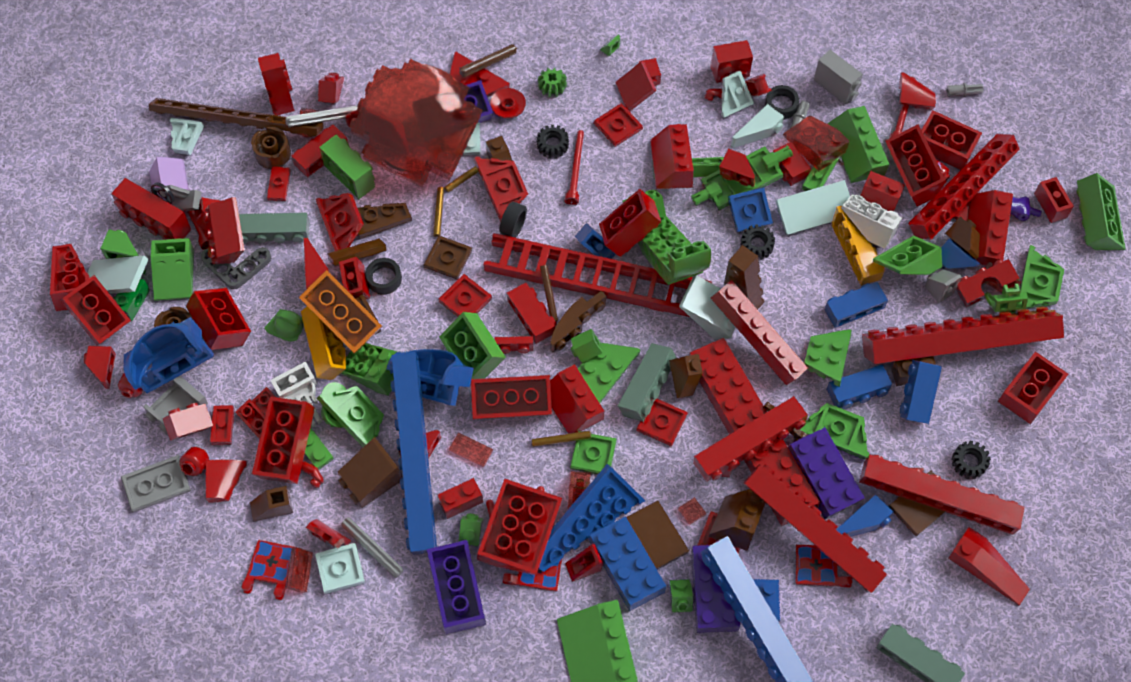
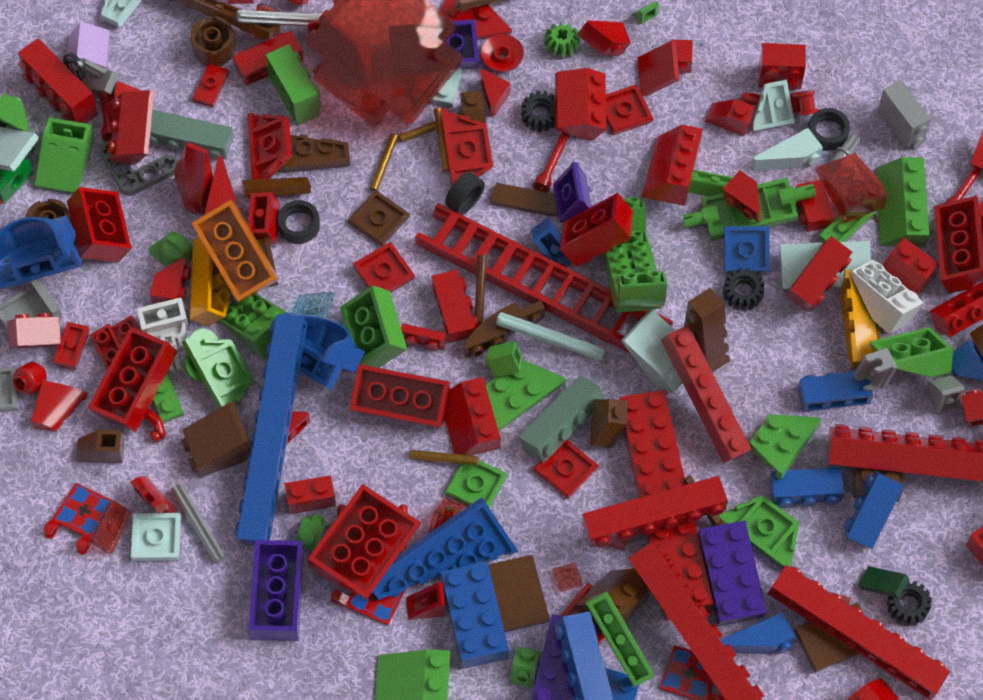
camera: 15 degrees right, 0 degrees up
(288, 260) = (194, 178): none -> red wedge
(291, 351) = (170, 282): none -> red slope
(417, 339) = (314, 304): none -> clear light blue slope
(471, 449) = (339, 444): clear red tile -> none
(479, 181) = (440, 139): none -> pearl gold bar
(511, 132) = (495, 91): none -> red slope
(562, 213) = (524, 199): none -> reddish brown tile
(583, 126) = (580, 102): none -> red slope
(586, 71) = (605, 37): none -> red slope
(598, 199) = (571, 192): none -> dark purple slope
(617, 317) = (550, 336): none -> light aqua axle
(703, 109) = (731, 115): none -> red slope
(757, 551) = (620, 638): none -> bright green slope
(816, 215) = (819, 274): none -> red brick
(888, 278) = (876, 367): none -> light grey hinge
(946, 448) = (883, 582): none -> dark green tile

